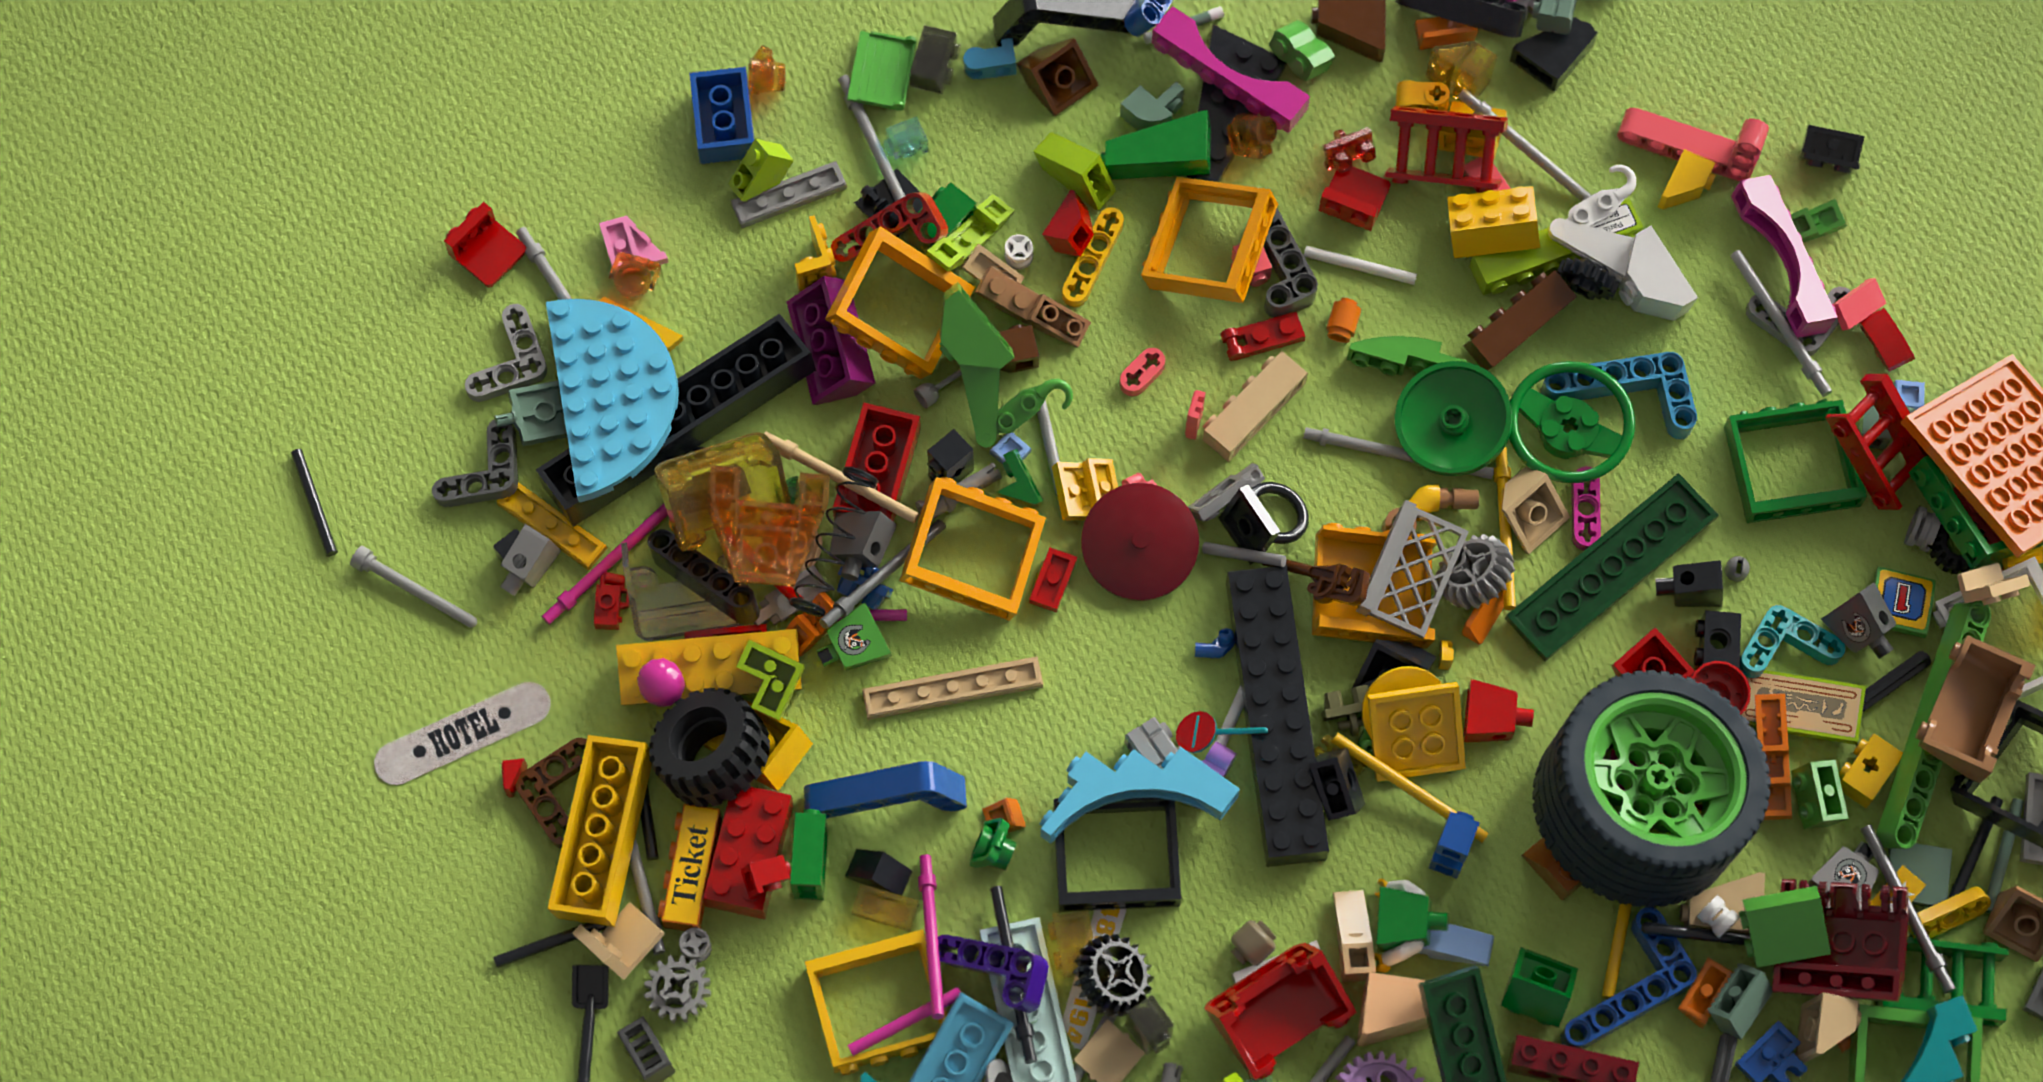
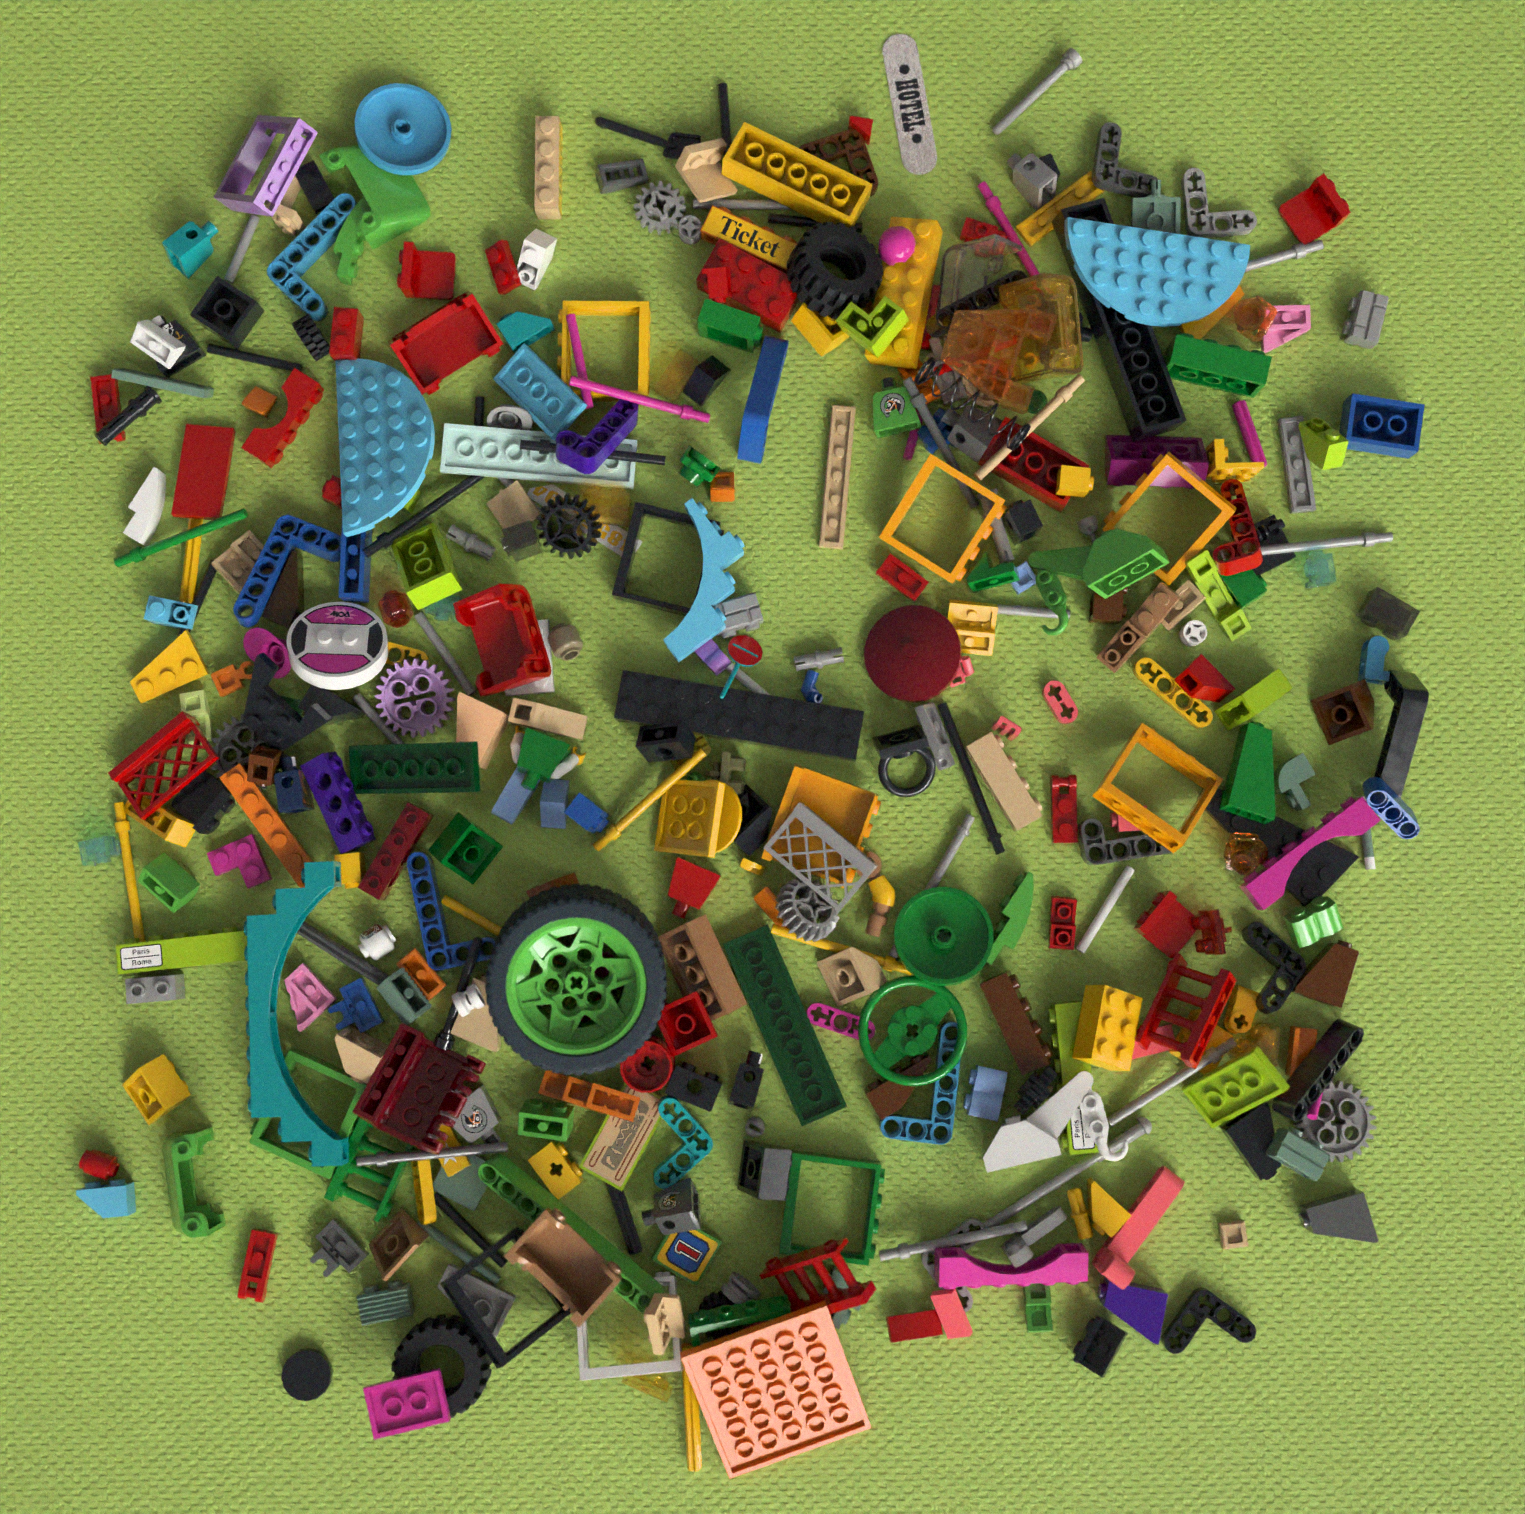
camera: 110 degrees right, 15 degrees up
(314, 502) = (1130, 35): black bar -> none
(599, 162) = (1365, 319): none -> light grey brick
(701, 298) = (1217, 365): none -> green brick
(765, 73) = (1409, 471): clear orange piece -> none
(768, 251) = (1248, 432): none -> dark pink axle
(882, 70) = (1389, 568): bright green piece -> none
(891, 410) = (1074, 481): none -> yellow brick
(1178, 646) = (818, 659): none -> light grey pin
(1244, 554) = (877, 731): light grey bar -> none
(1319, 400) = (994, 836): none -> black bar
(1331, 582) = (830, 787): reddish brown piece -> none
(1343, 320) = (1058, 878): orange brick -> none
(1361, 69) = (1283, 969): none -> black beam
(1391, 305) = (1062, 922): none -> red slope
(1454, 897) = (554, 803): none -> light blue slope
(1511, 78) = (1235, 1087): none -> lime tile
(1578, 668) = (702, 967): none -> medium nougat slope
(1582, 165) = (1144, 1126): none -> light grey bar
(1607, 332) = (986, 1092): none -> light blue brick
(1652, 429) = (888, 1096): none -> reddish brown slope
(1662, 50) = (1233, 1234): none -> tan tile
(1687, 1057) = (376, 941): none -> white head
(1701, 204) = (1079, 1213): none -> yellow axle
(1756, 61) = (1200, 1314): none -> black beam
(1761, 254) = (1017, 1246): none -> light grey beam
(1782, 114) = (1136, 1305): none -> dark purple slope
(1783, 540) = (764, 1170): none -> black slope
(1785, 927) = (442, 1048): bright green brick -> none
(1911, 393) = (861, 1326): light blue tile -> none

